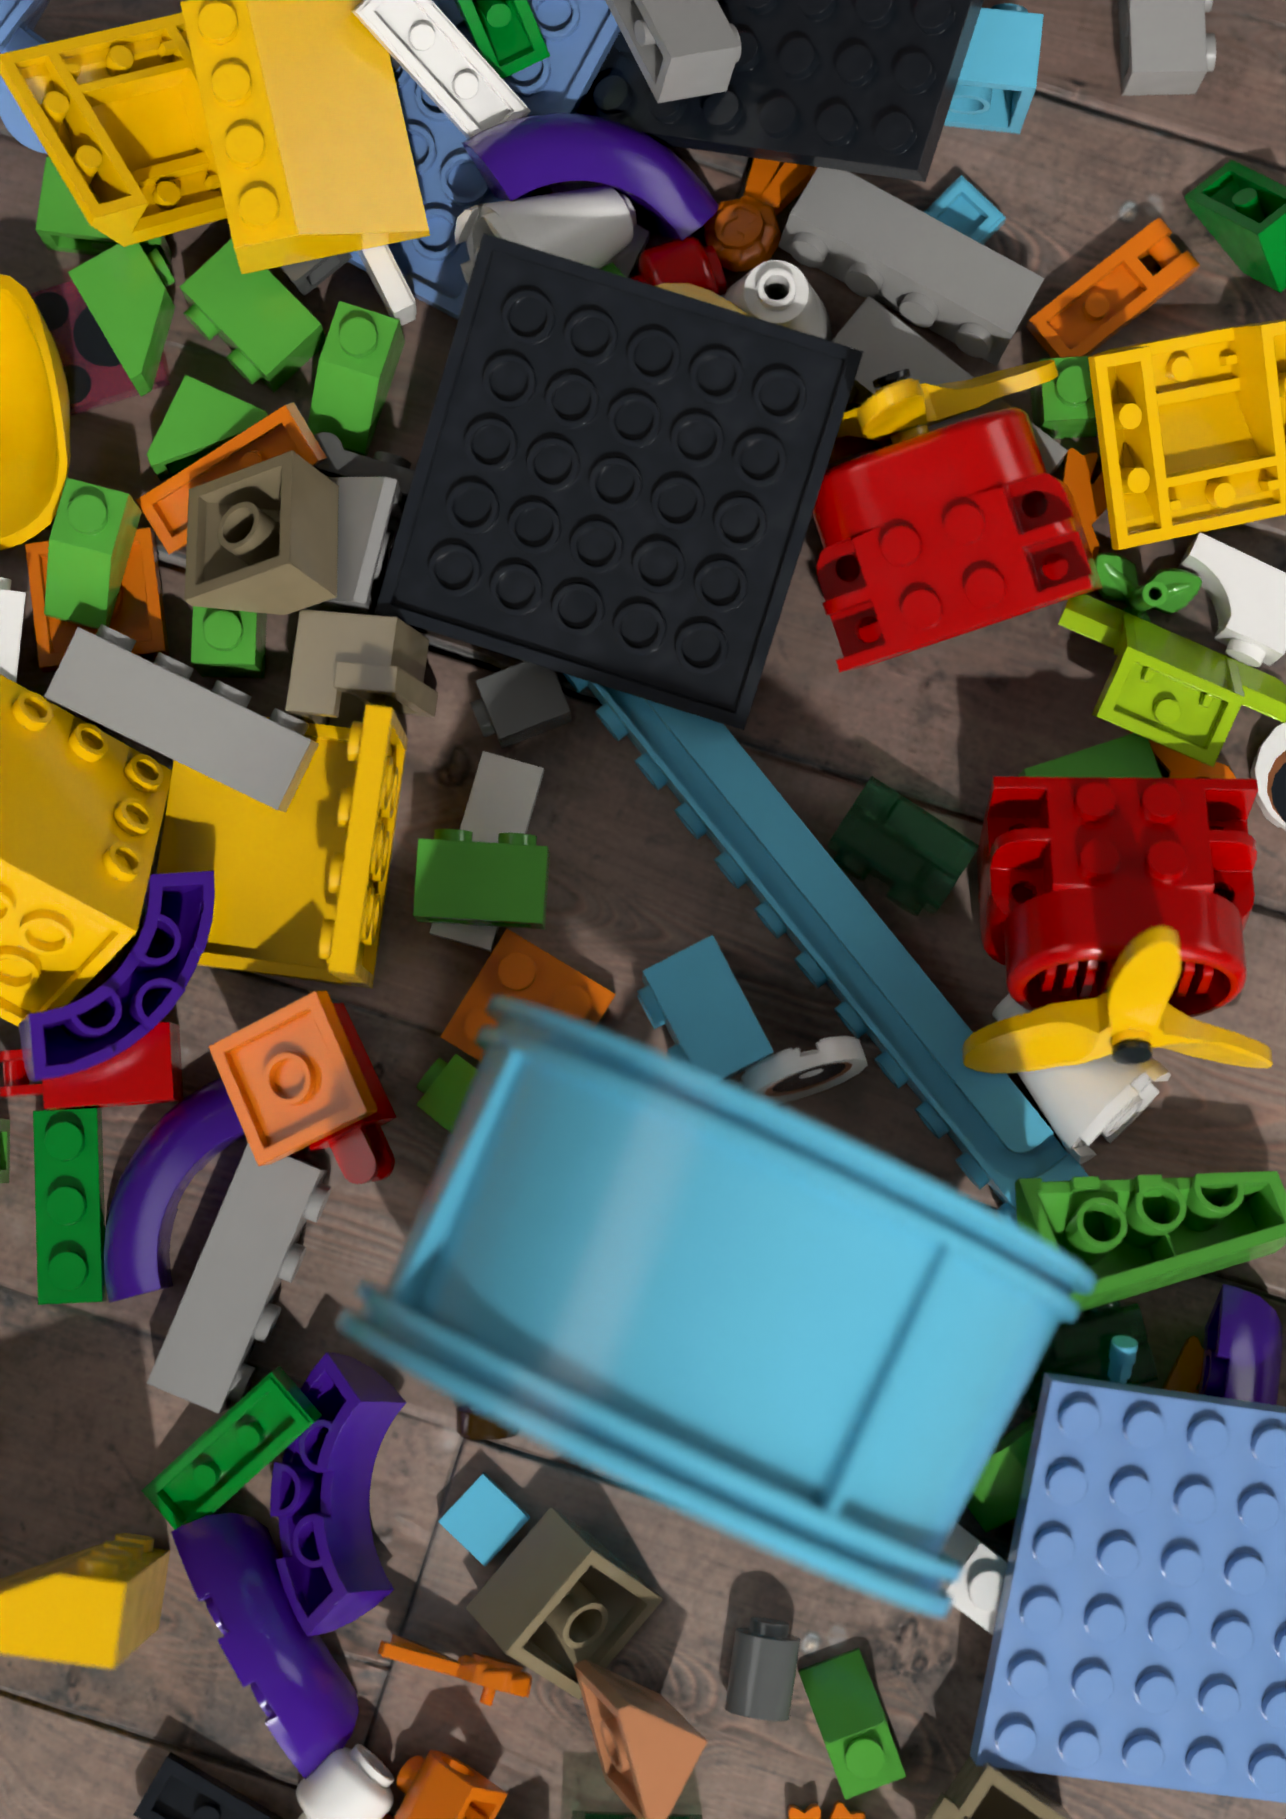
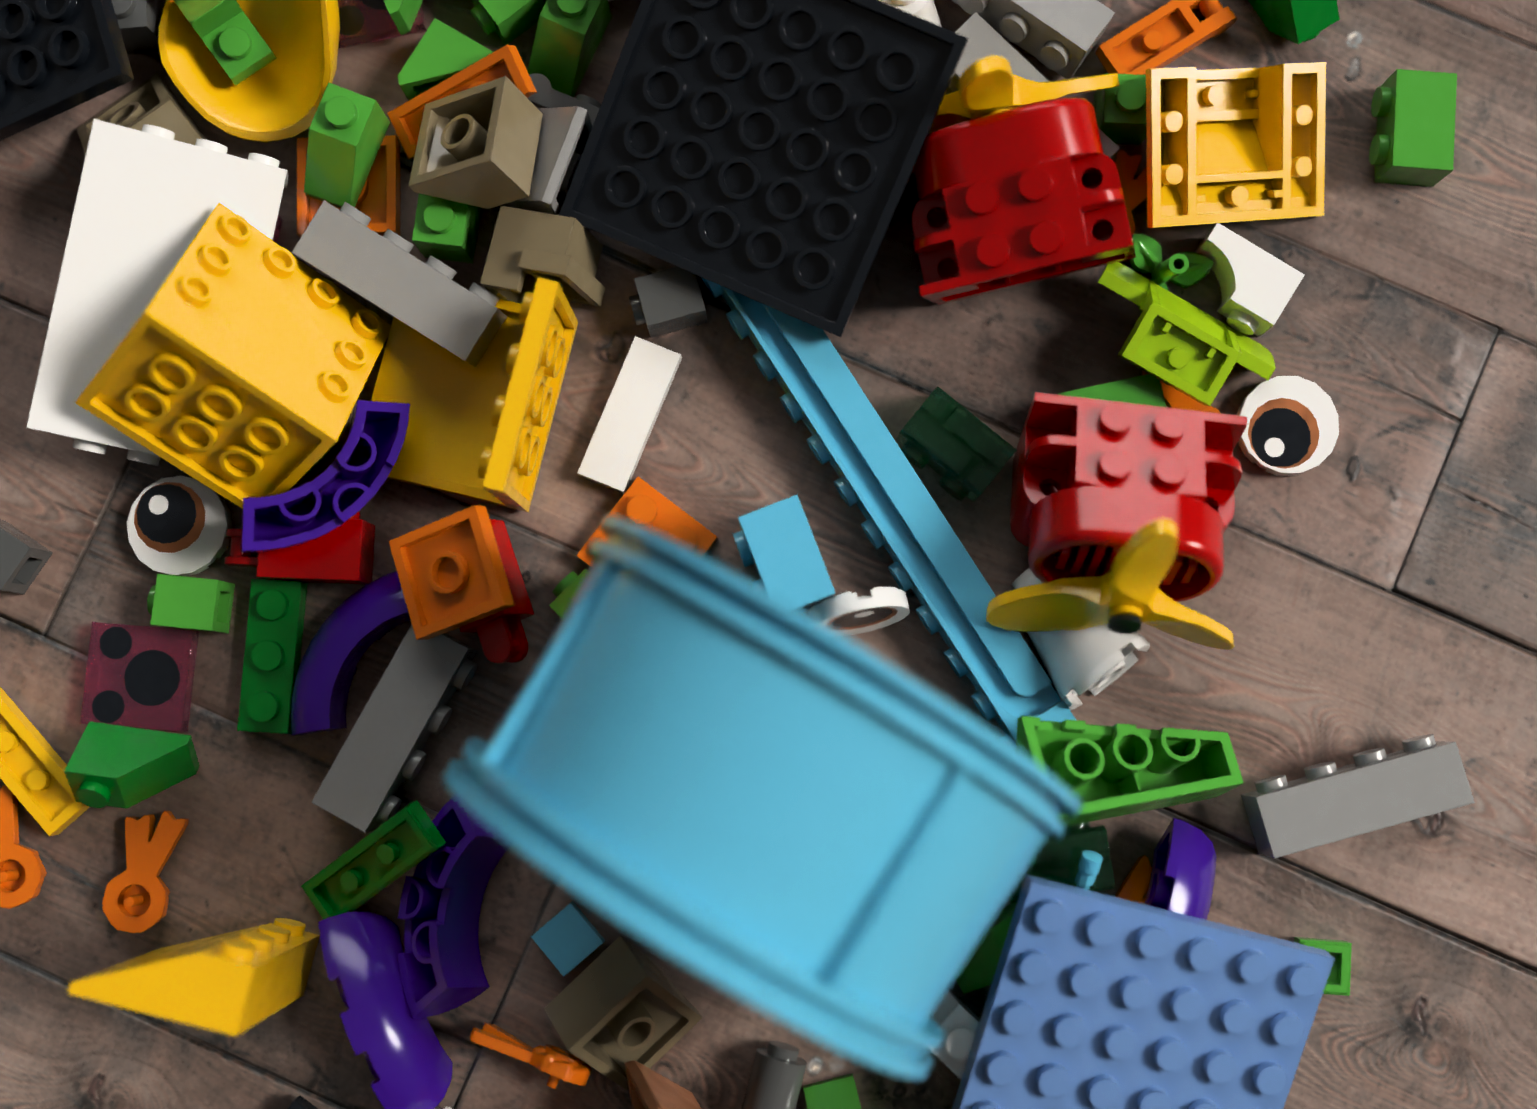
camera: 10 degrees right, 0 degrees up
(481, 880) = (621, 435): bright green brick -> none

